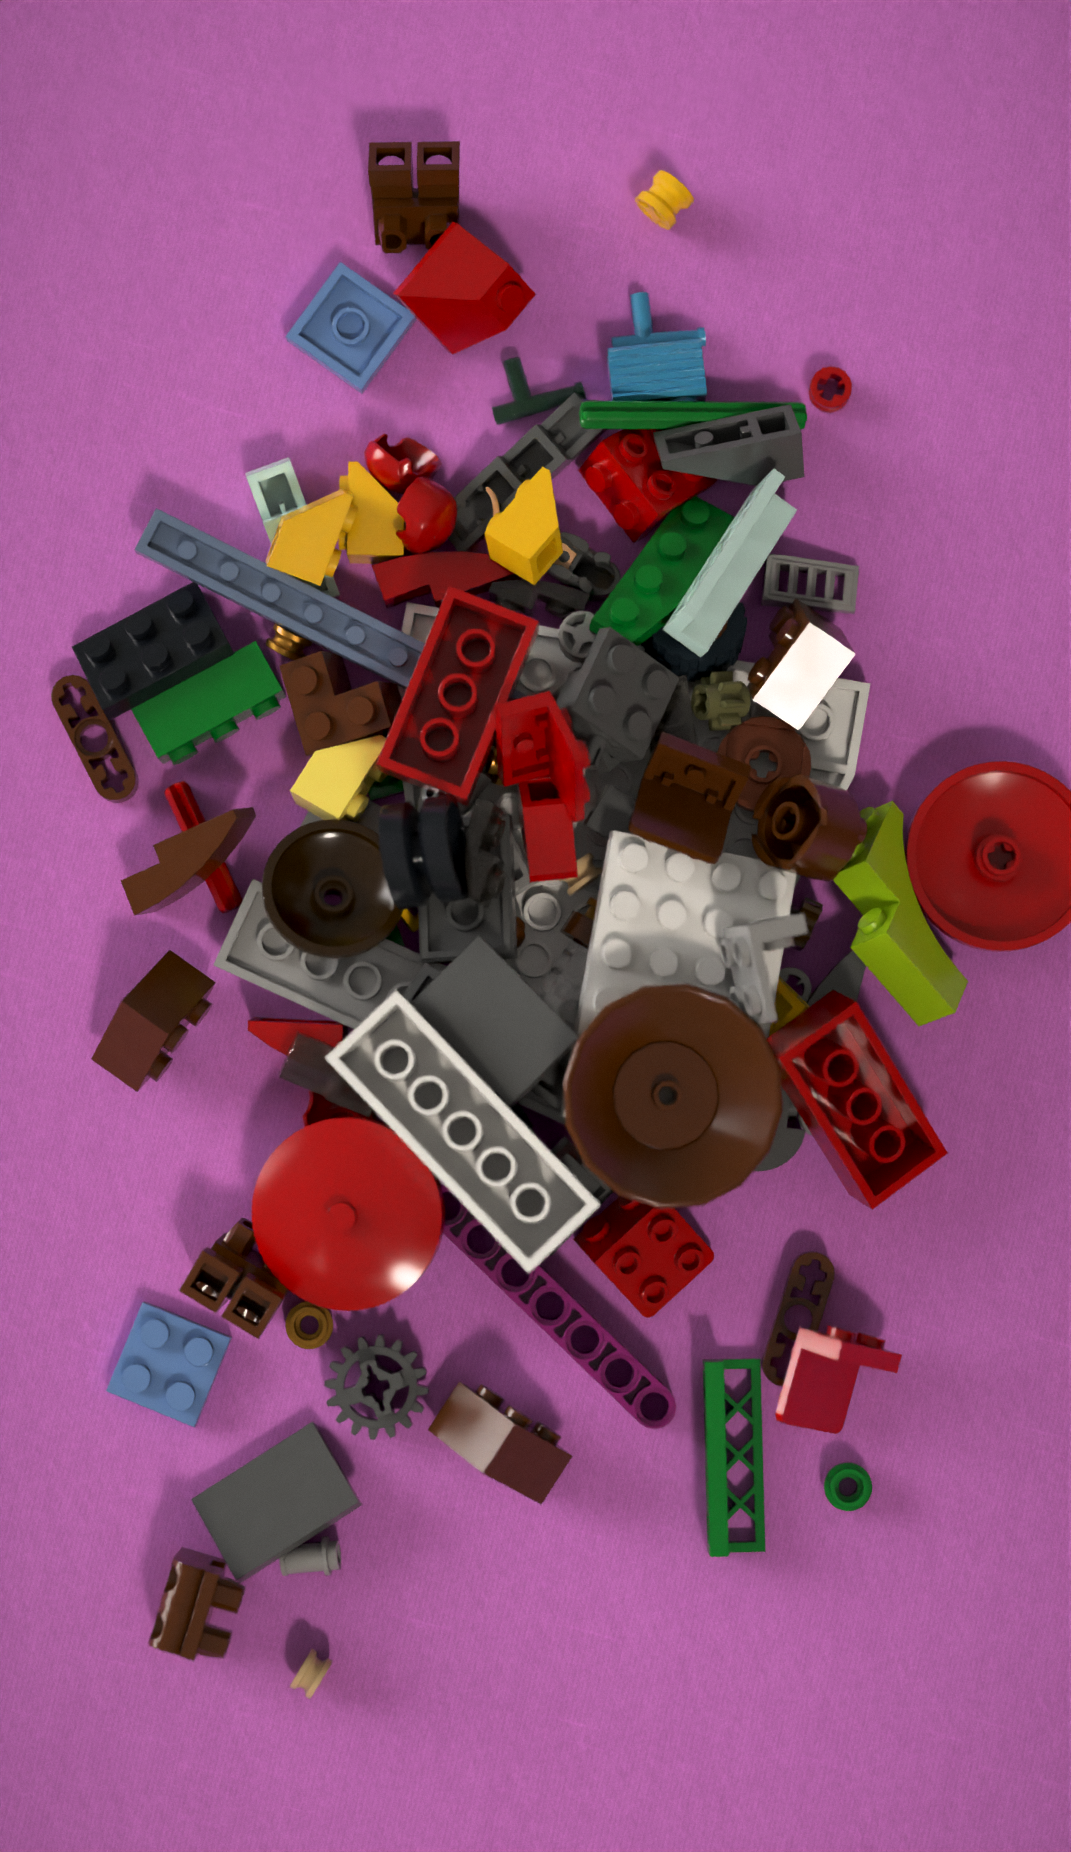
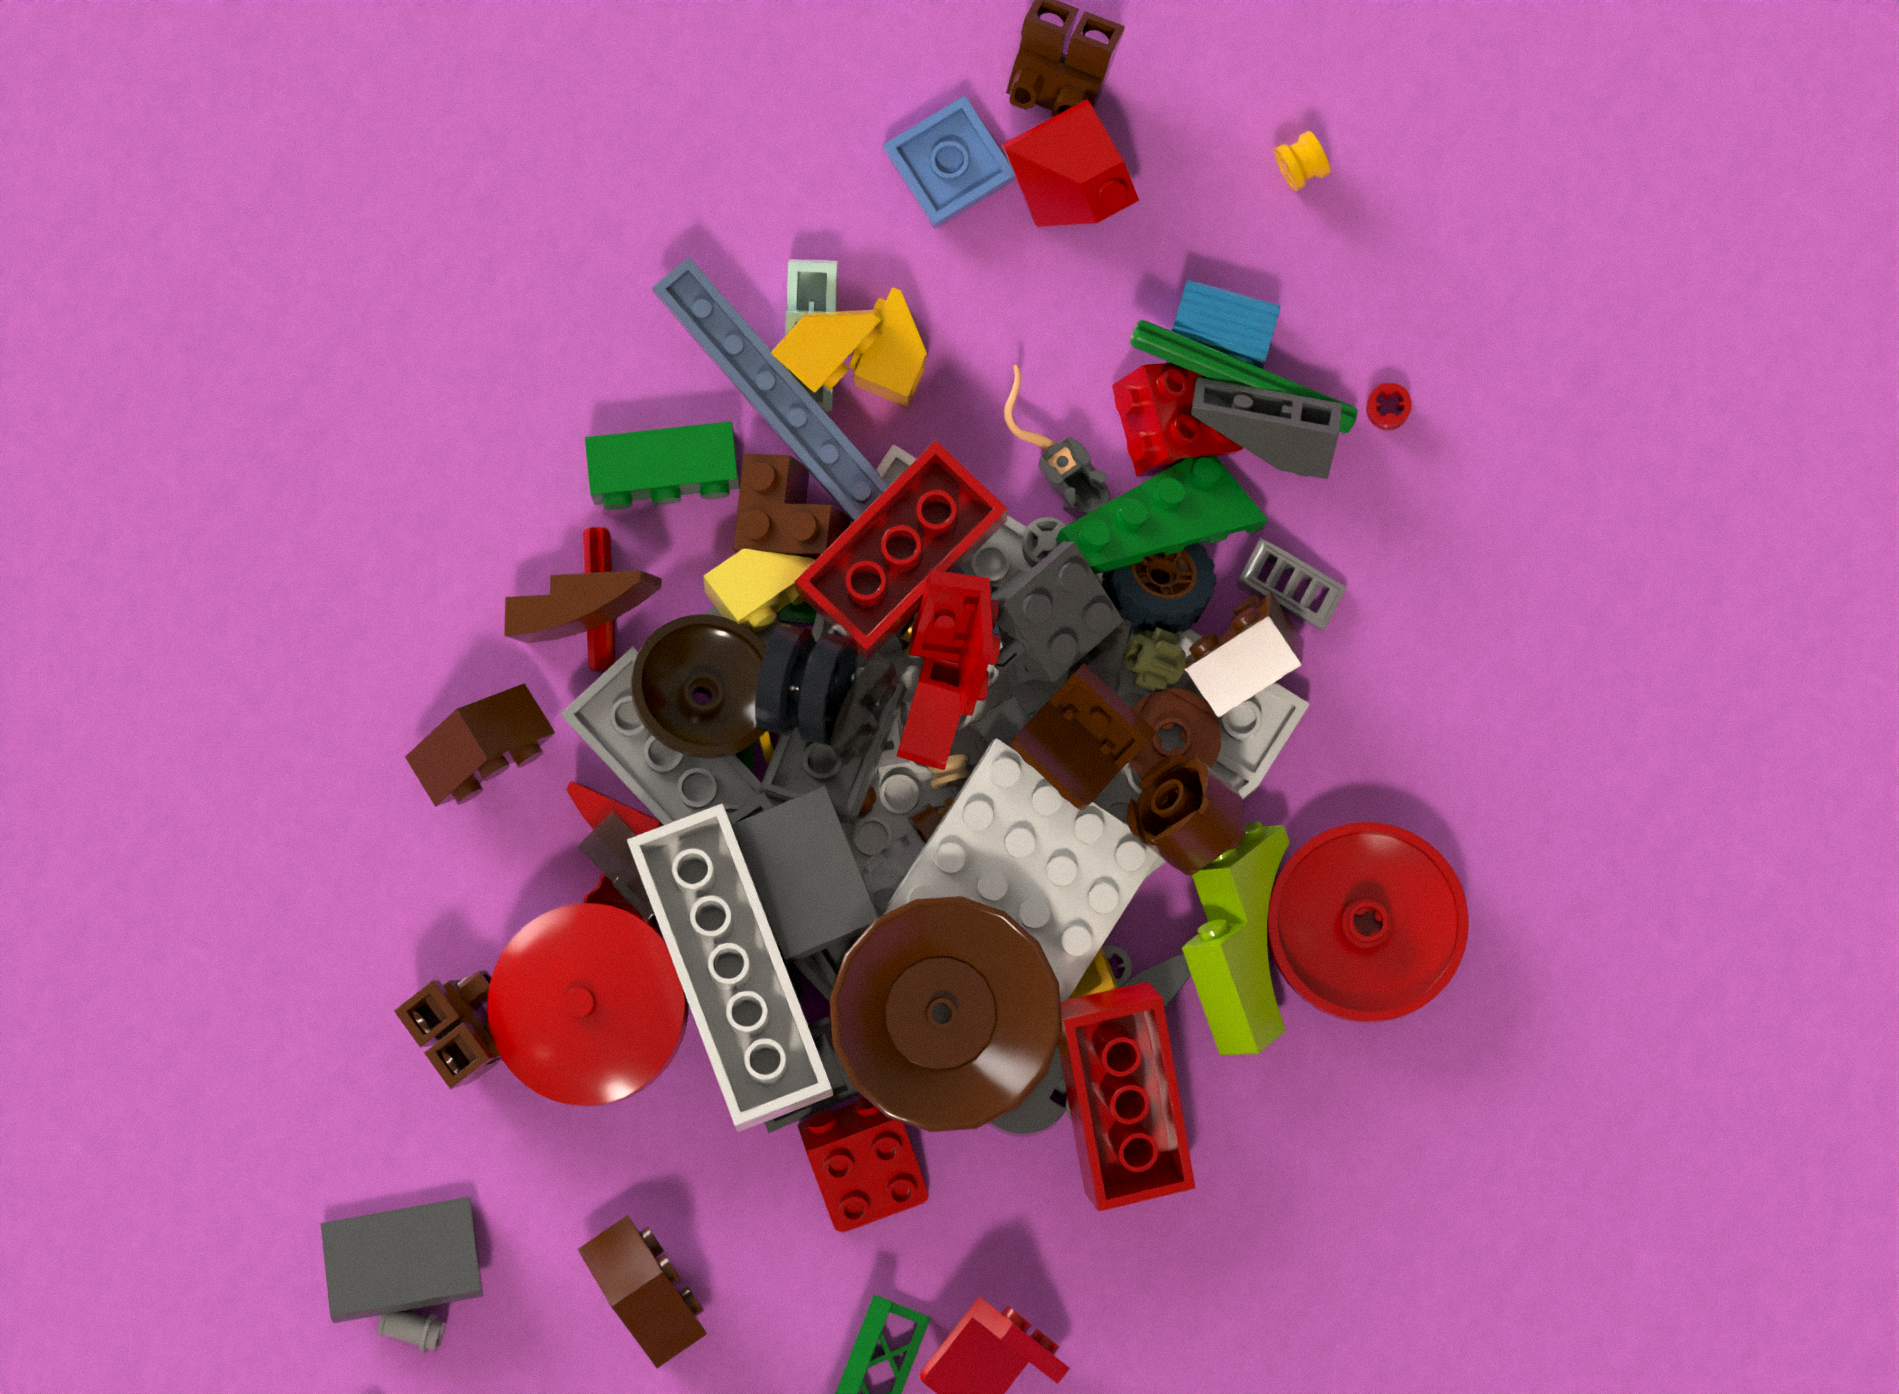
camera: 20 degrees right, 5 degrees down
(90, 703) = (548, 417): reddish brown beam -> none
(152, 650) = (629, 391): black plate -> none
(169, 1364) = (355, 1084): medium blue plate -> none
(187, 1606) = (272, 1321): reddish brown hips -> none
(287, 643) = (762, 436): pearl gold bush -> none
(294, 1329) = (490, 1098): pearl gold plate -> none
(356, 1393) = (524, 1186): dark grey gear -> none
(399, 464) = (941, 313): red hair -> none
(428, 515) = (946, 369): red hair -> none
(434, 572) = (921, 423): red slope -> none
(524, 597) = (1011, 484): clear smoke slope -> none
(525, 403) = (1088, 302): clear green piece -> none
(527, 532) = (1035, 423): yellow slope -> none
(547, 444) = (1049, 366): dark grey slope -> none
(560, 1328) = (751, 1204): magenta beam -> none
(643, 327) = (1232, 275): dark azure piece -> none
(731, 566) = (1218, 535): light aqua fence -> none
(744, 954) = (1071, 906): light grey bracket -> none
(797, 1280) = (999, 1256): reddish brown beam -> none
(811, 911) = (1146, 907): dark brown plate -> none

